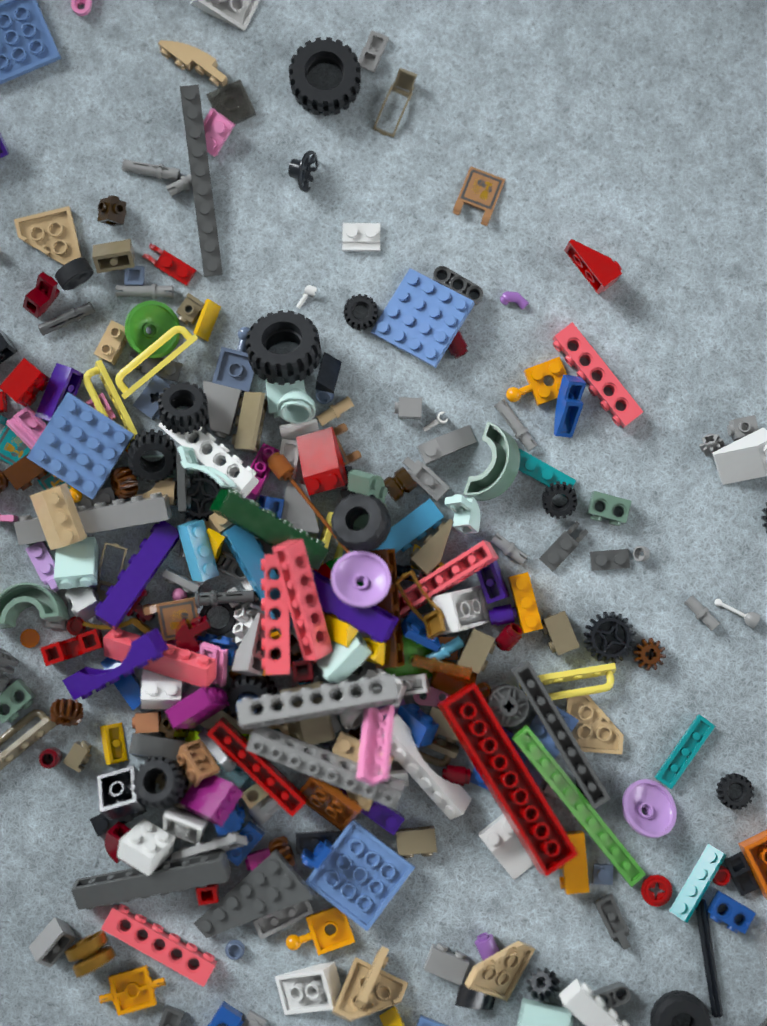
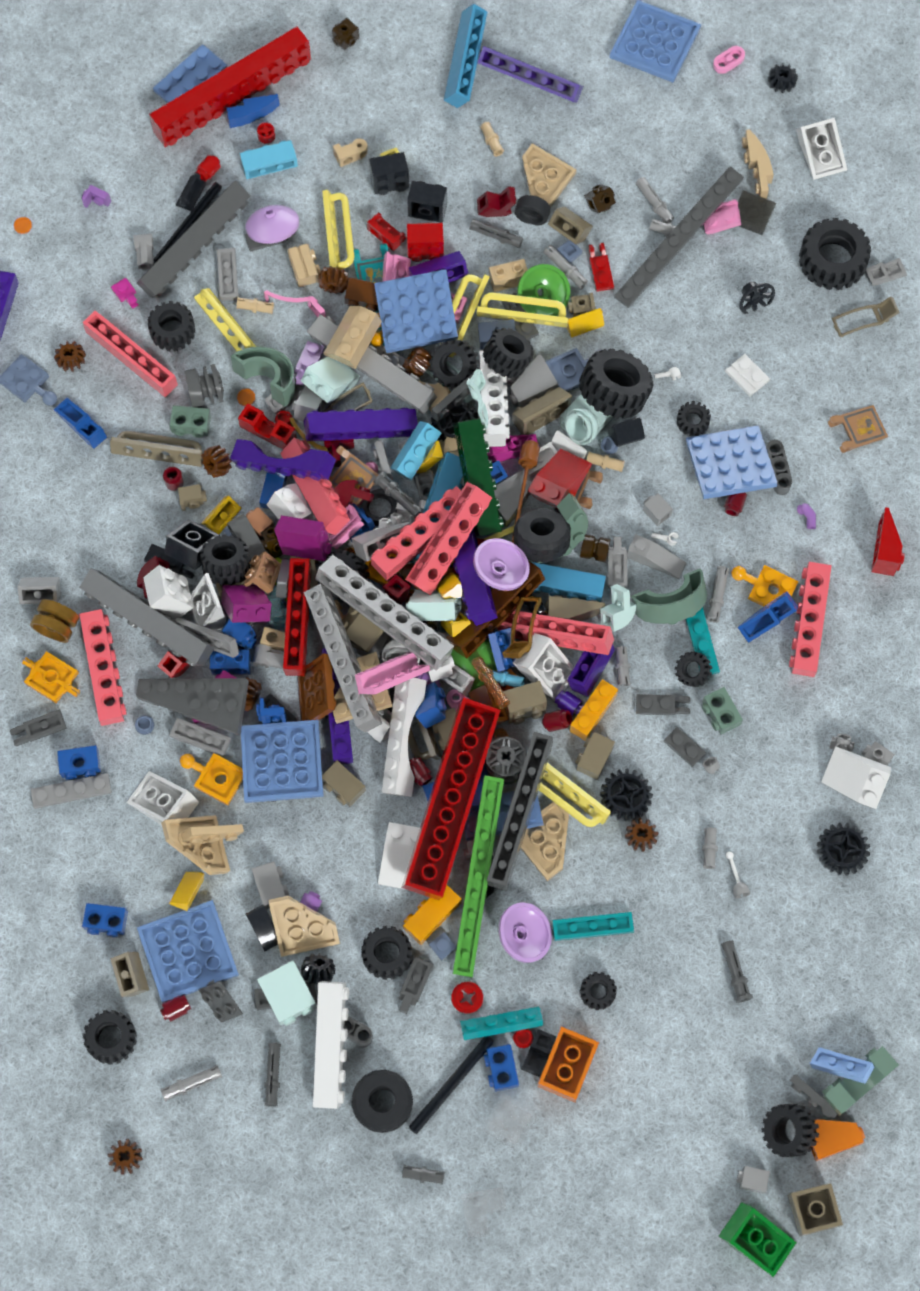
camera: 50 degrees right, 15 degrees down
(579, 938) = (391, 969): none -> black tyre

